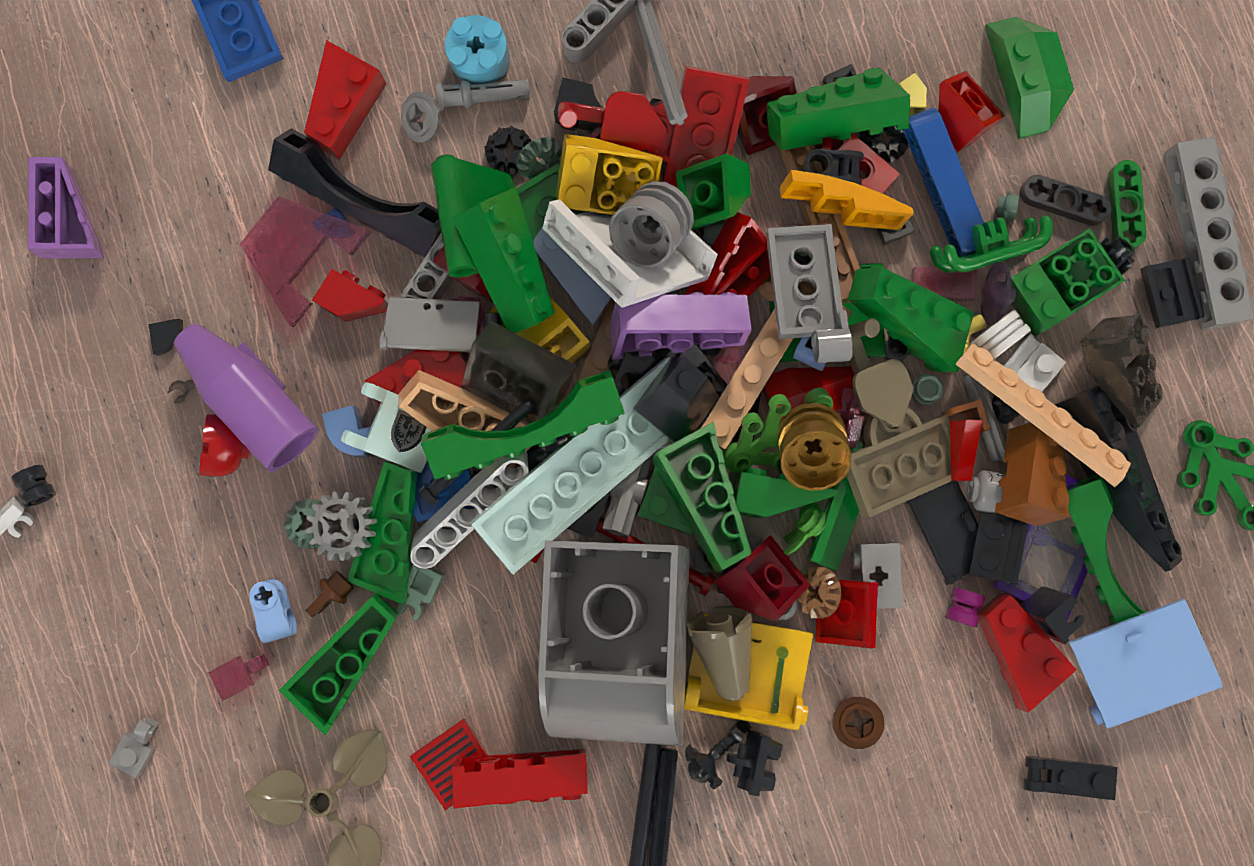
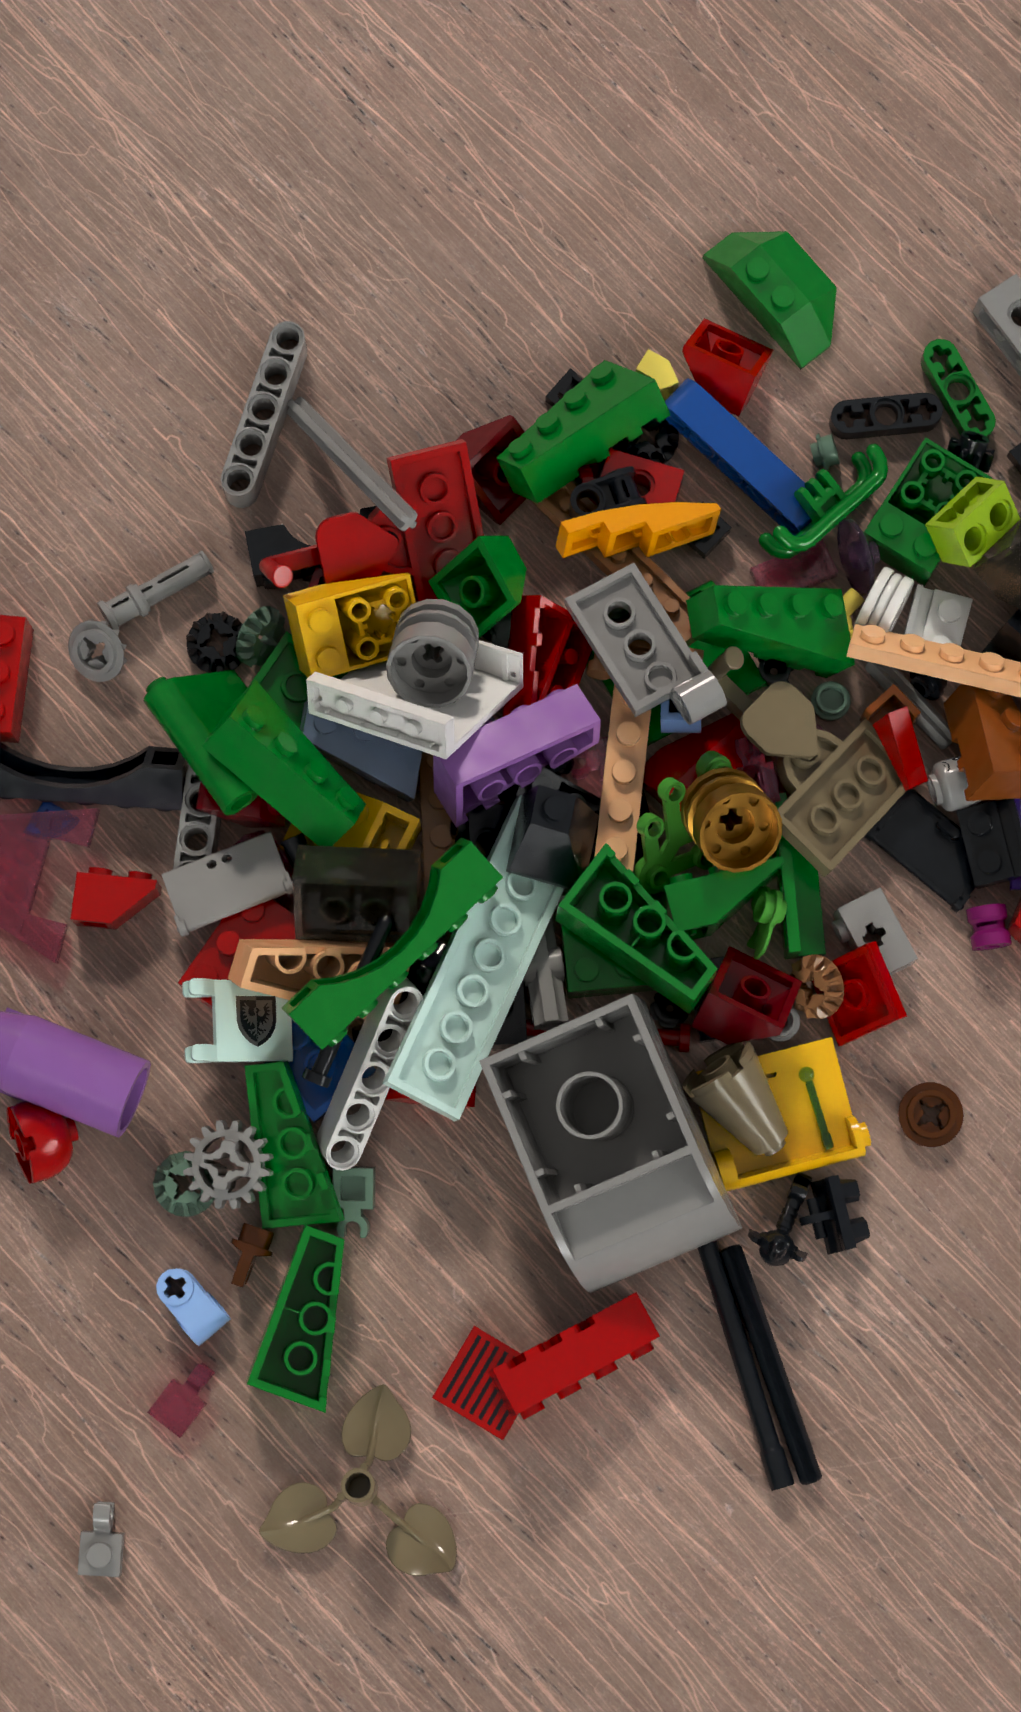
camera: 30 degrees left, 5 degrees down
(344, 419) = (169, 1050): medium blue brick -> none
(478, 35) = (122, 524): medium azure brick -> none
(1097, 306) = (973, 521): none -> lime brick

